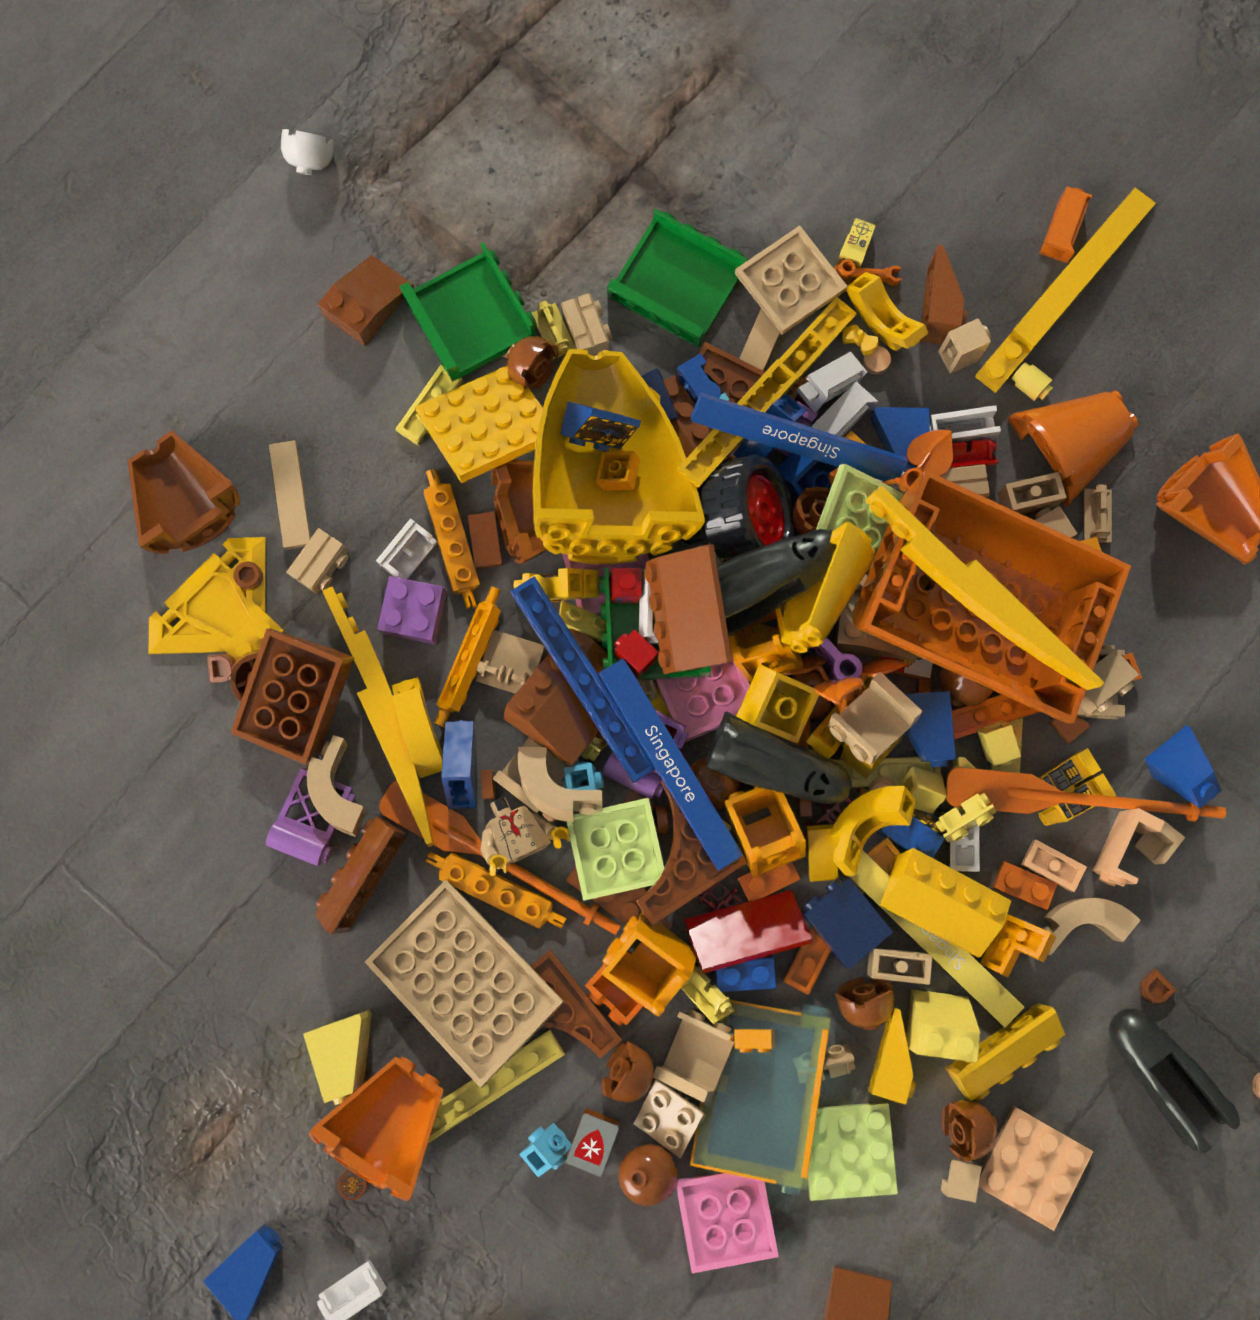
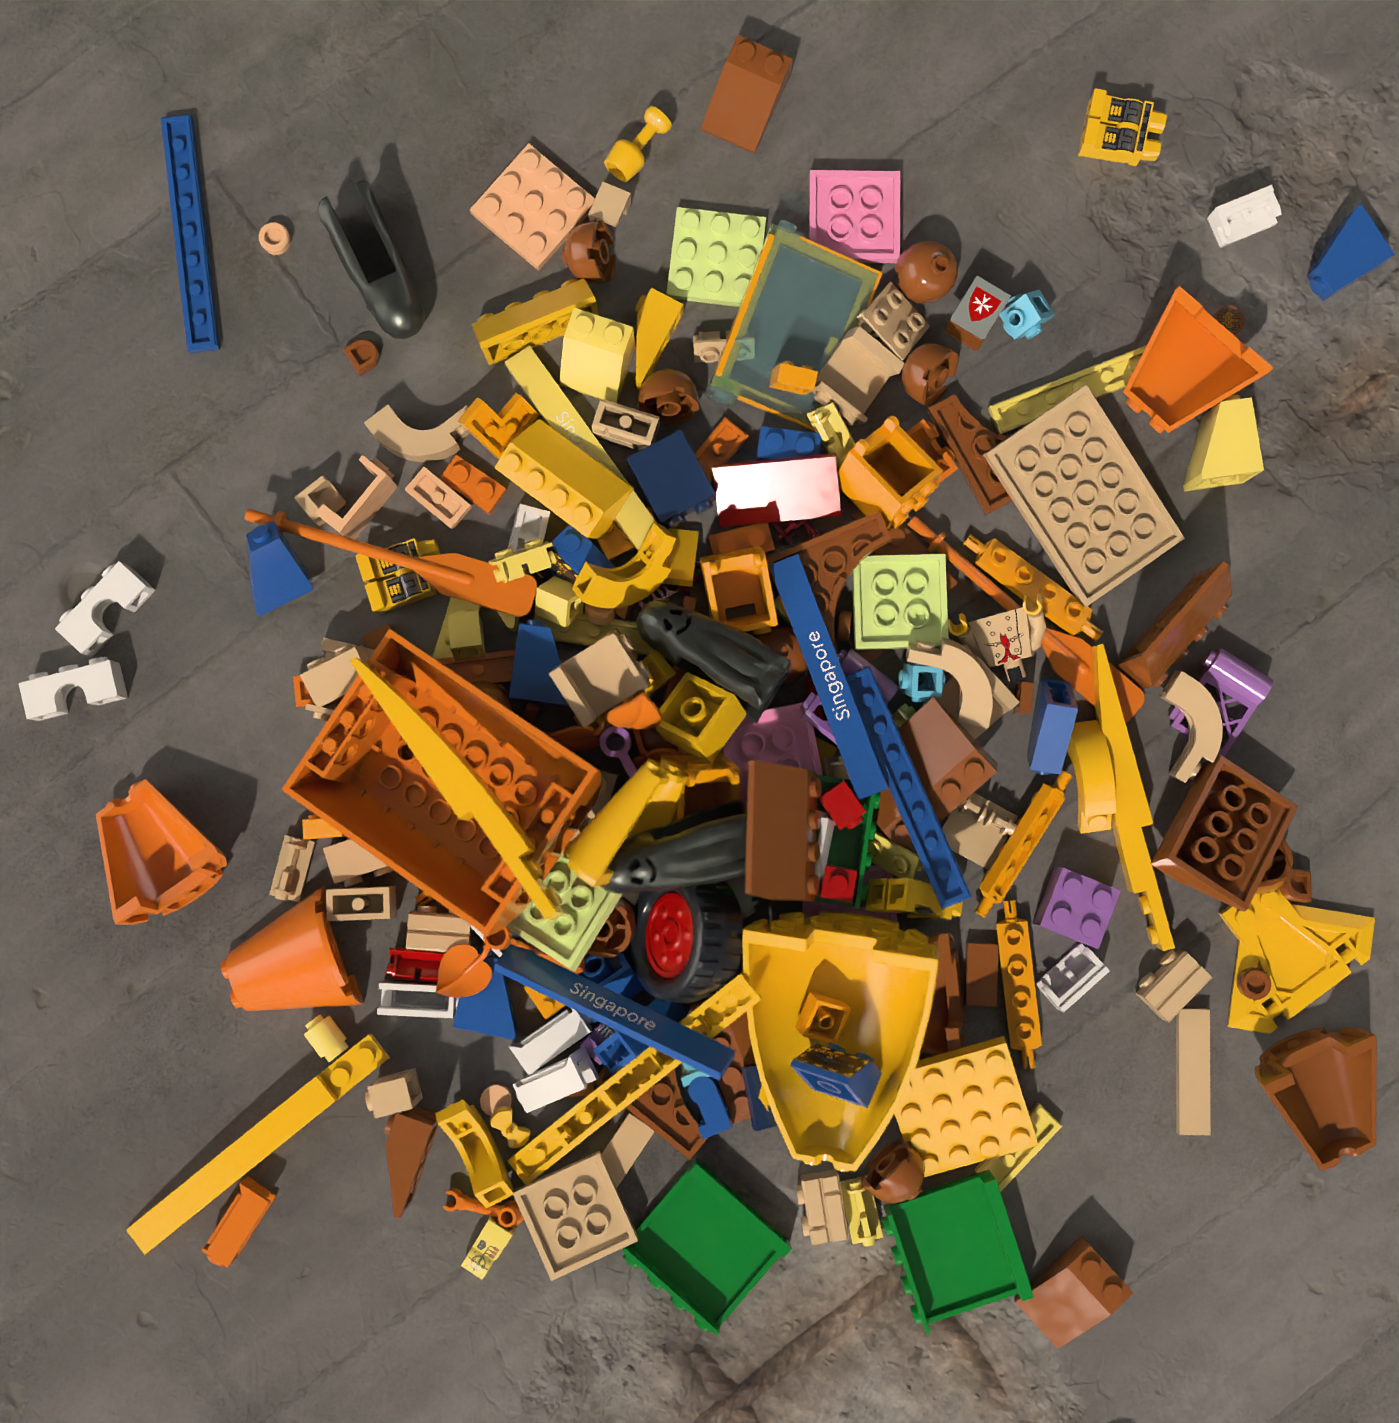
camera: 175 degrees left, 5 degrees up
(958, 1234) = (626, 156): none -> yellow piece

